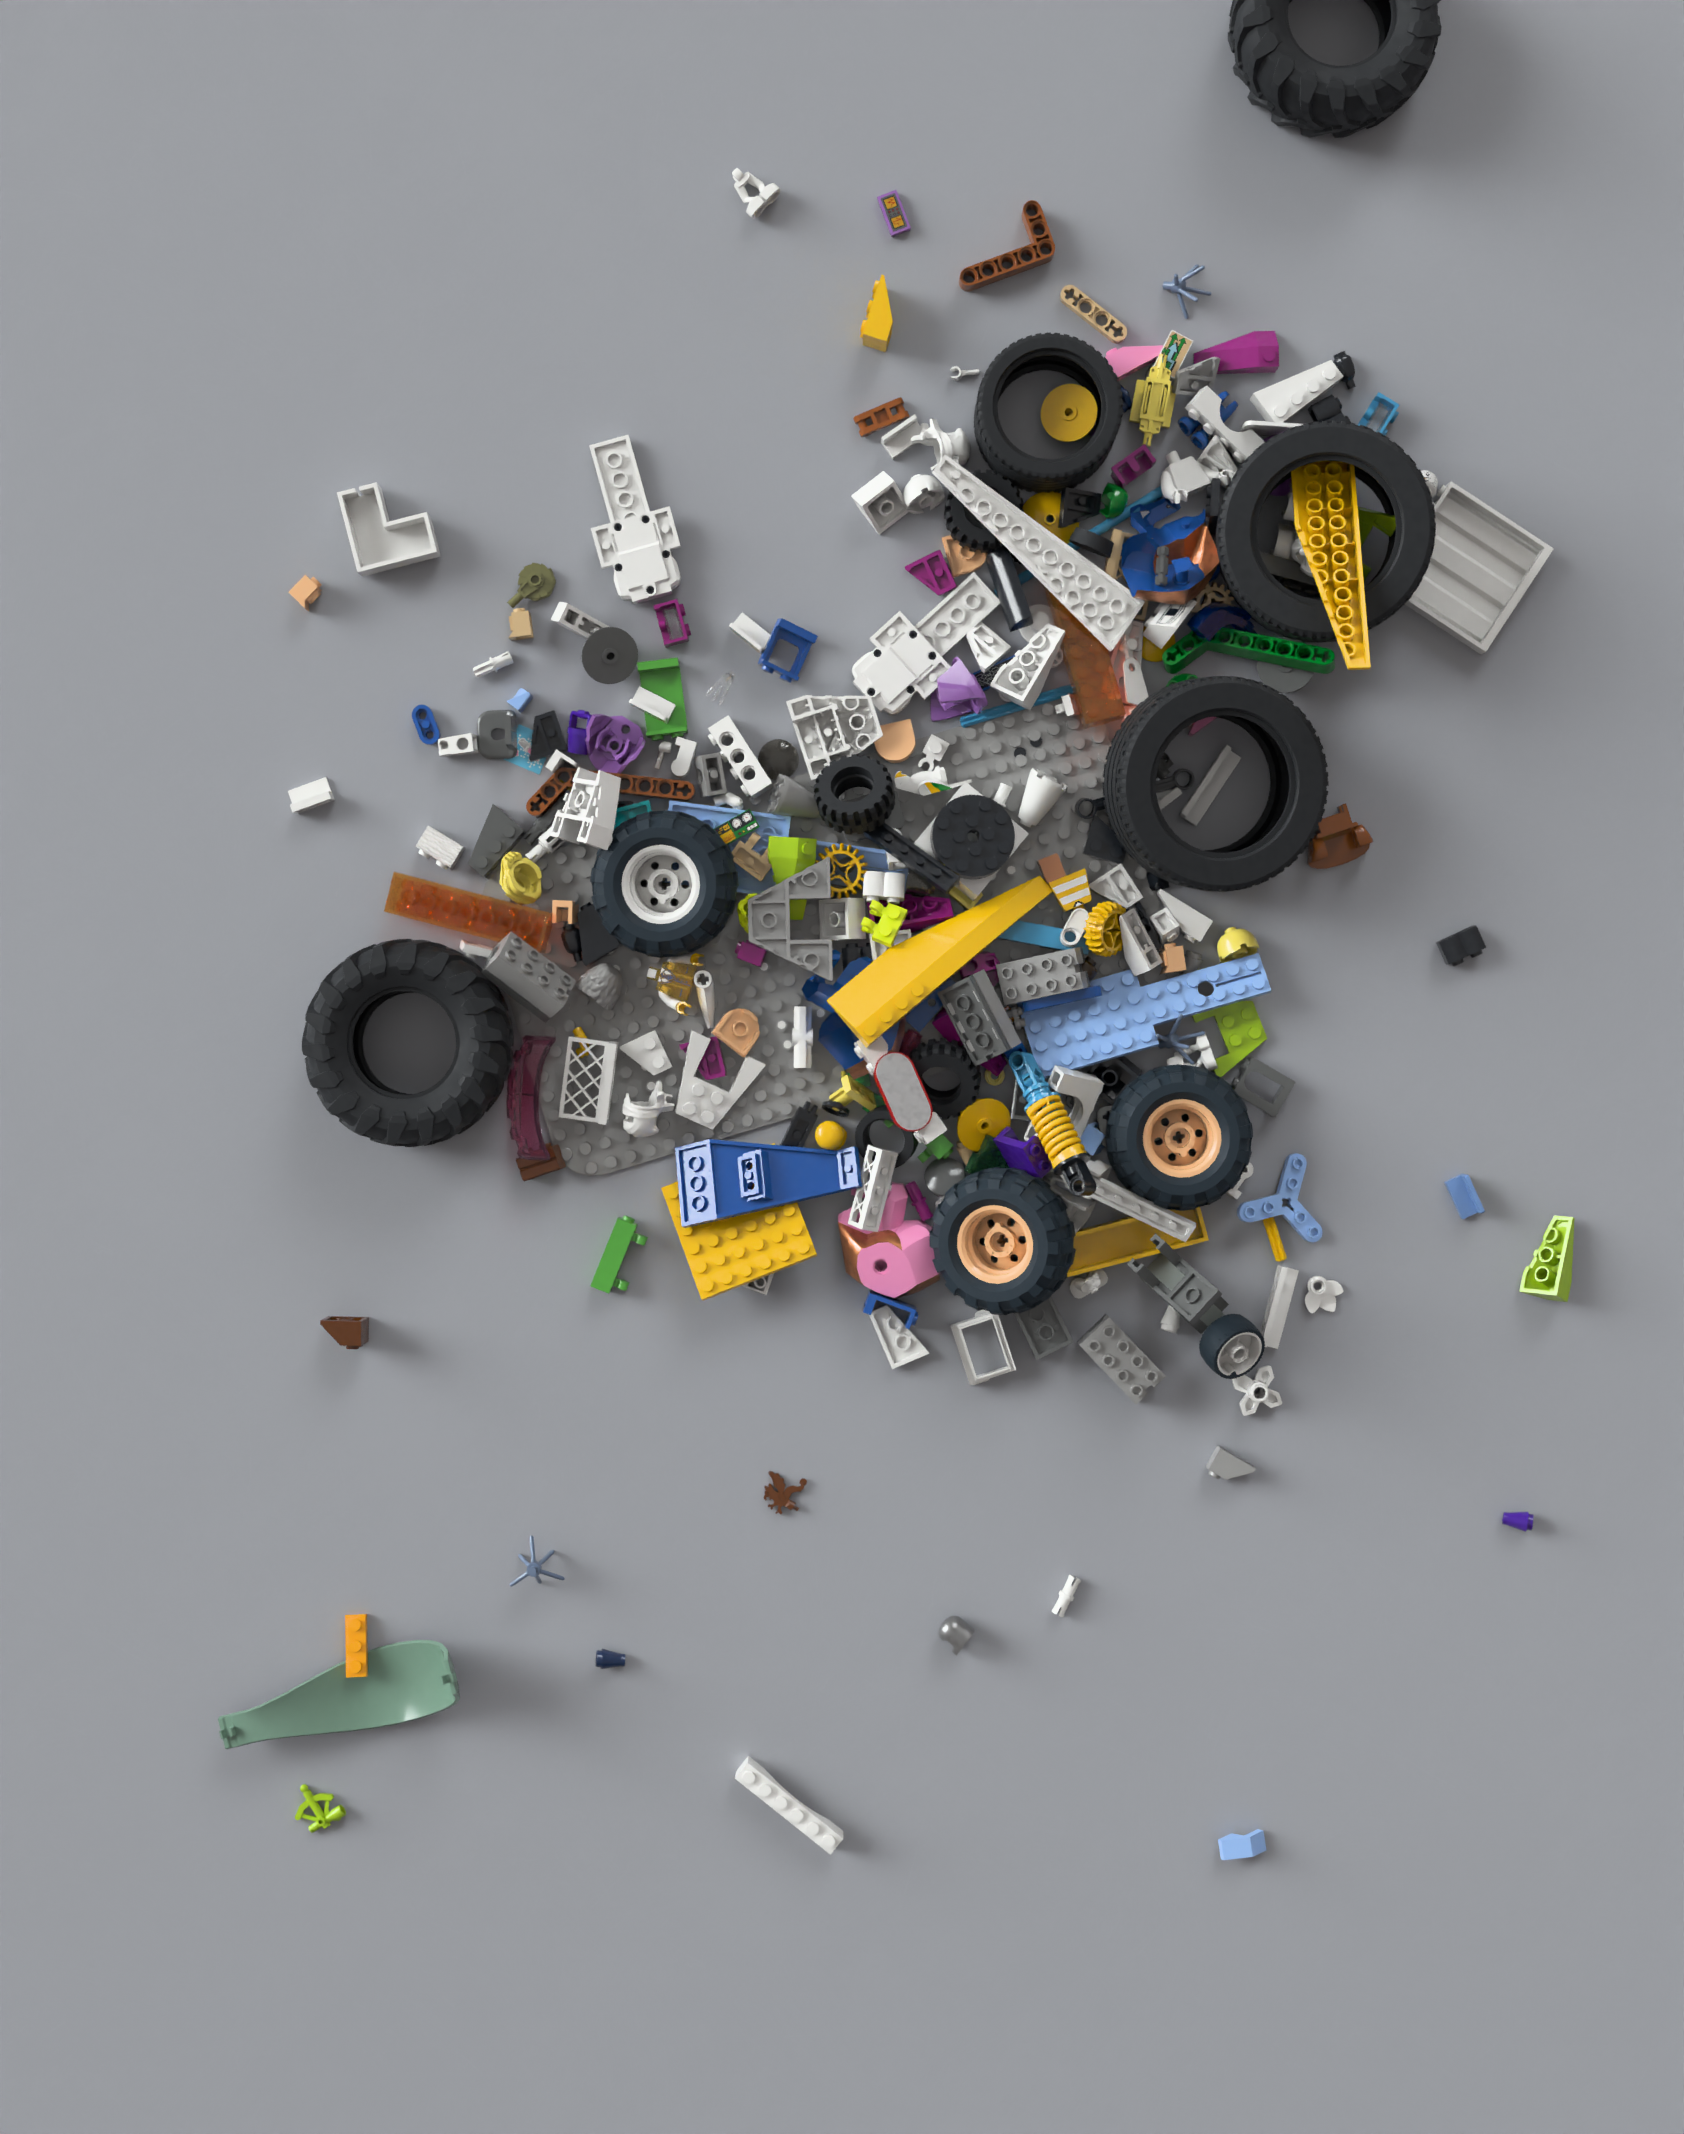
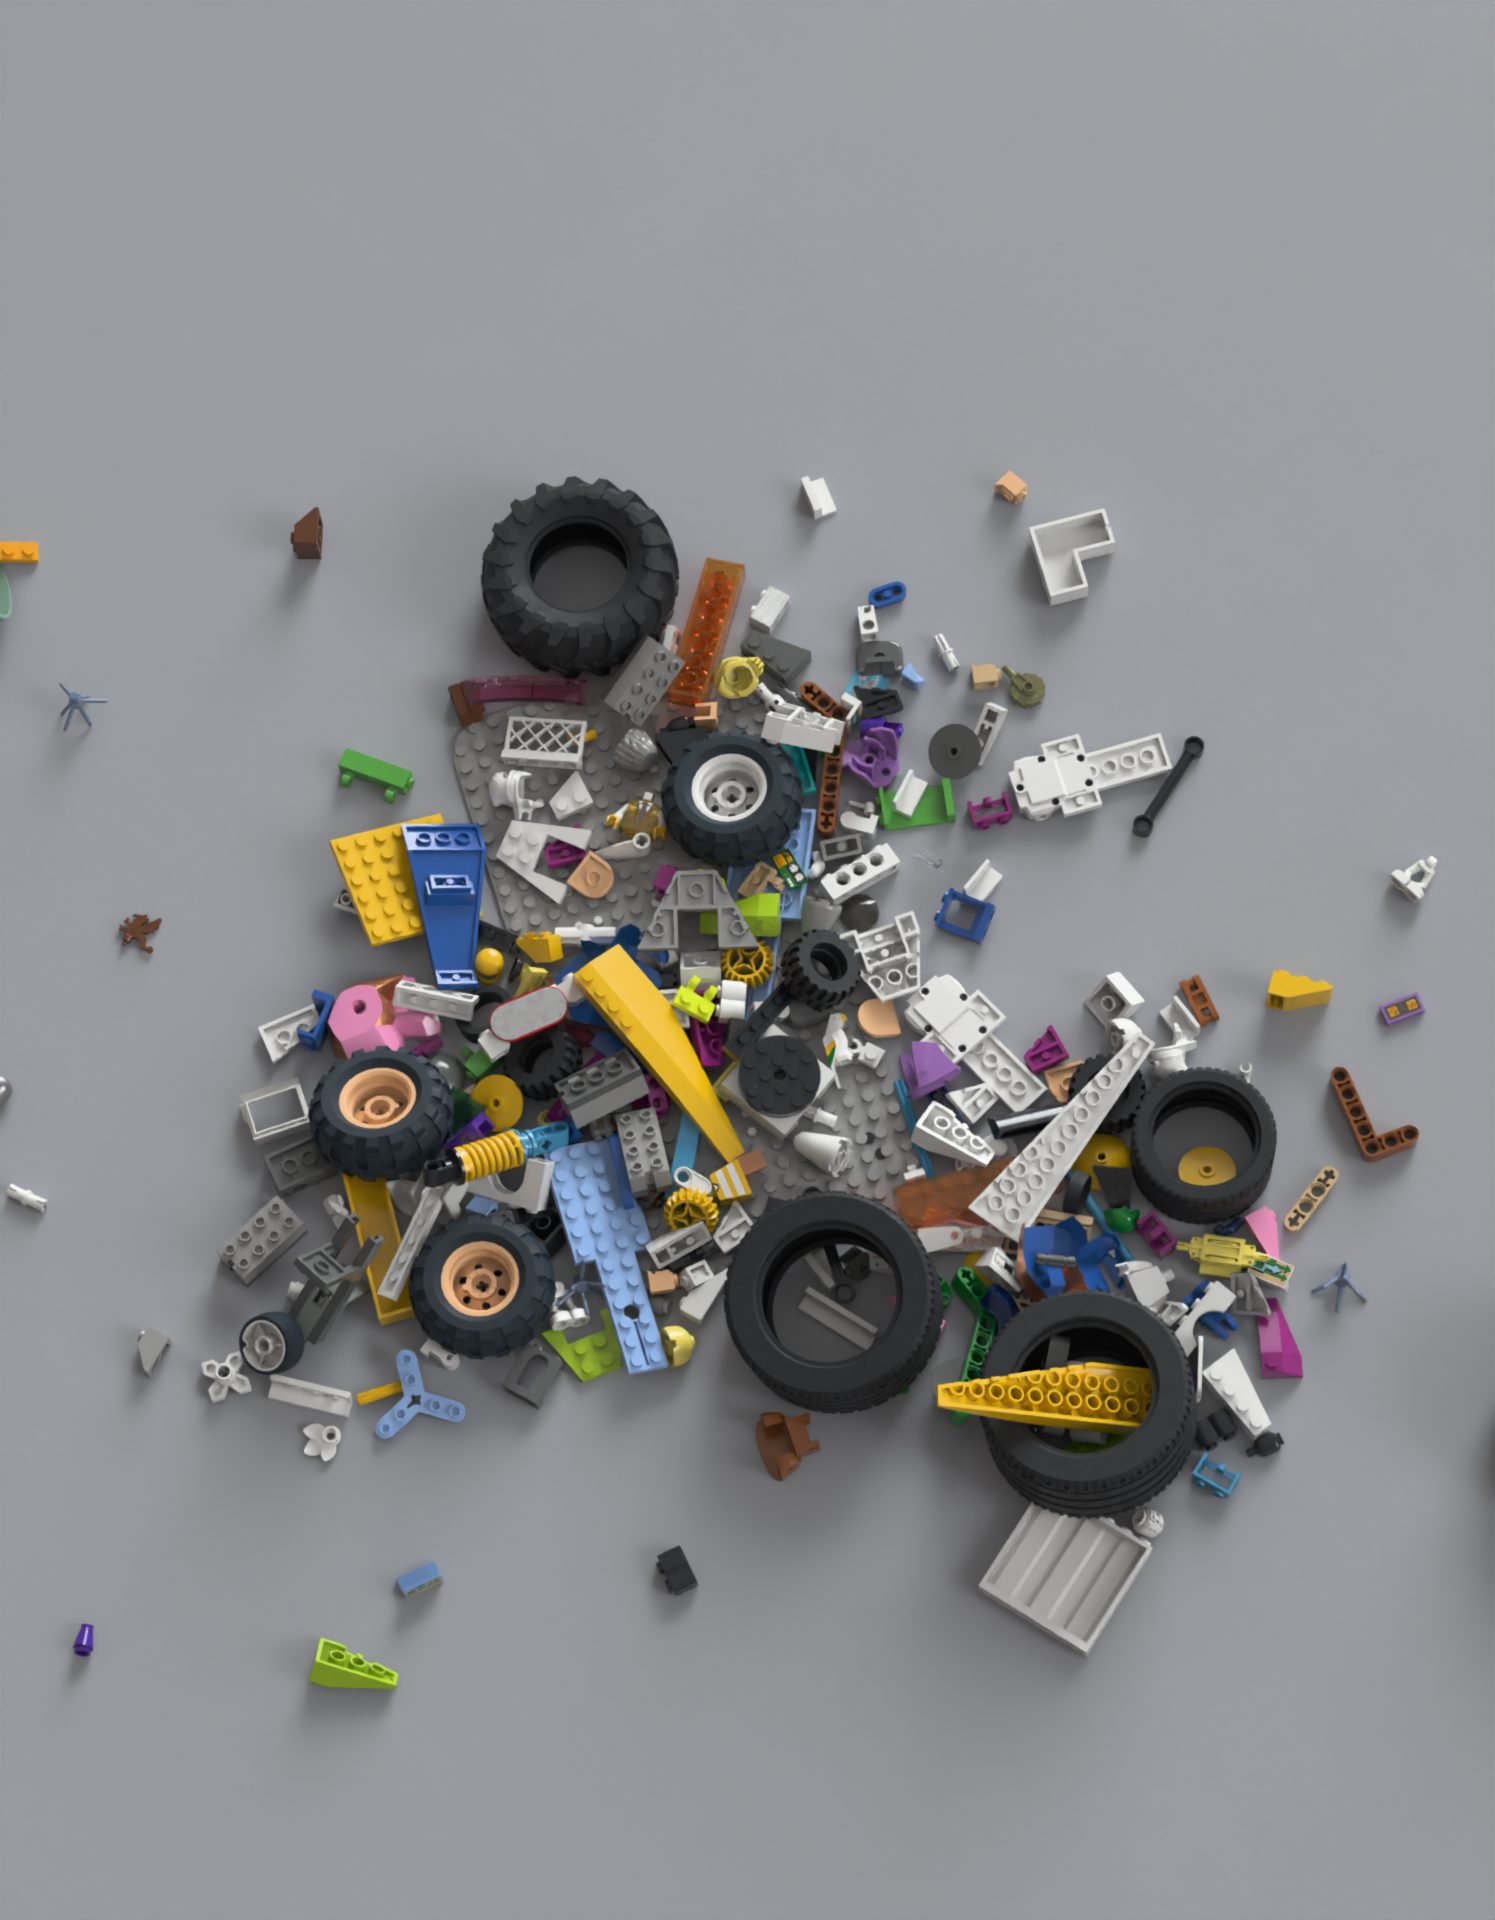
camera: 90 degrees right, 20 degrees down
(646, 439) = (1168, 786): none -> black piece
(815, 1081) = (541, 947): none -> yellow slope

